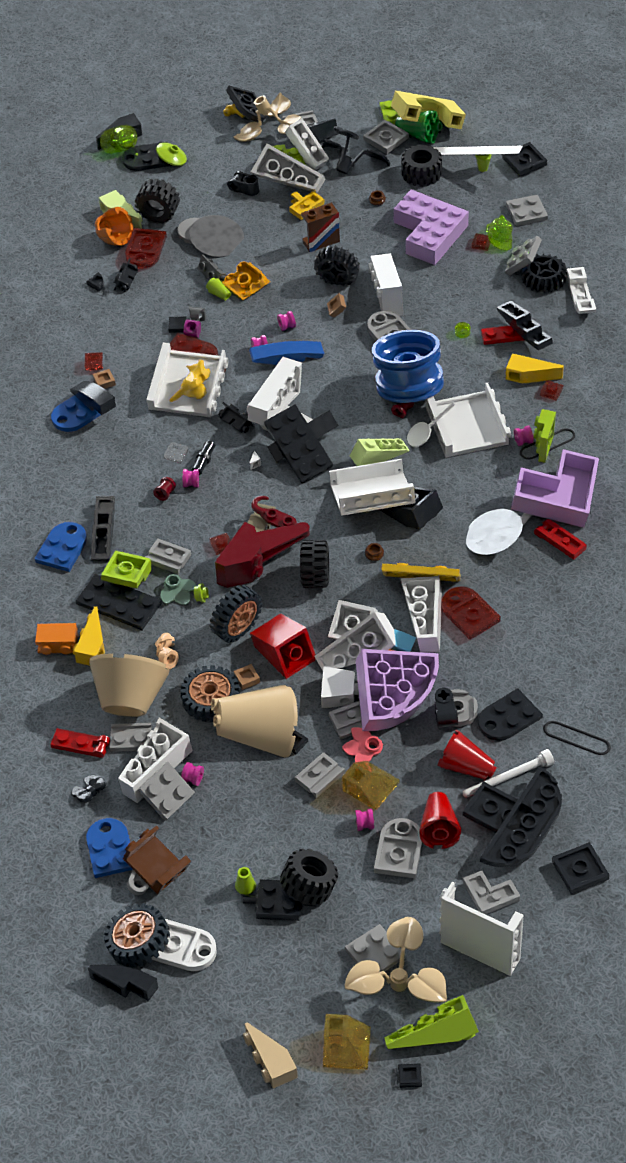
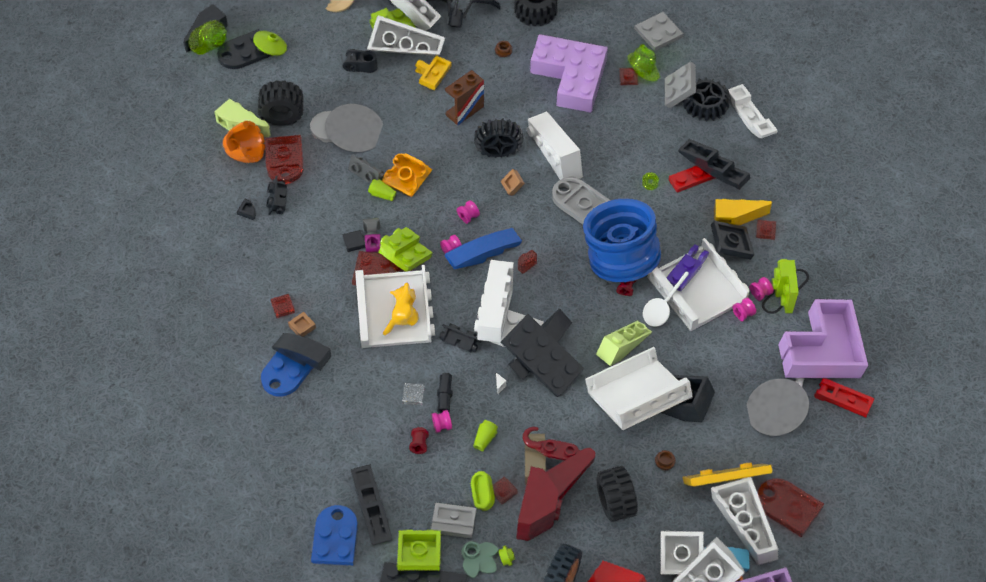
camera: 20 degrees left, 5 degrees up
(202, 539) = (482, 491): none -> lime tile
(216, 337) = (404, 249): none -> lime plate
(224, 496) = (485, 434): none -> lime cone
(321, 370) = (527, 261): none -> clear red plate
(464, 404) = (689, 265): none -> dark purple hinge
(500, 448) = (744, 309): none -> dark pink wheel
(513, 390) = (732, 240): none -> black plate

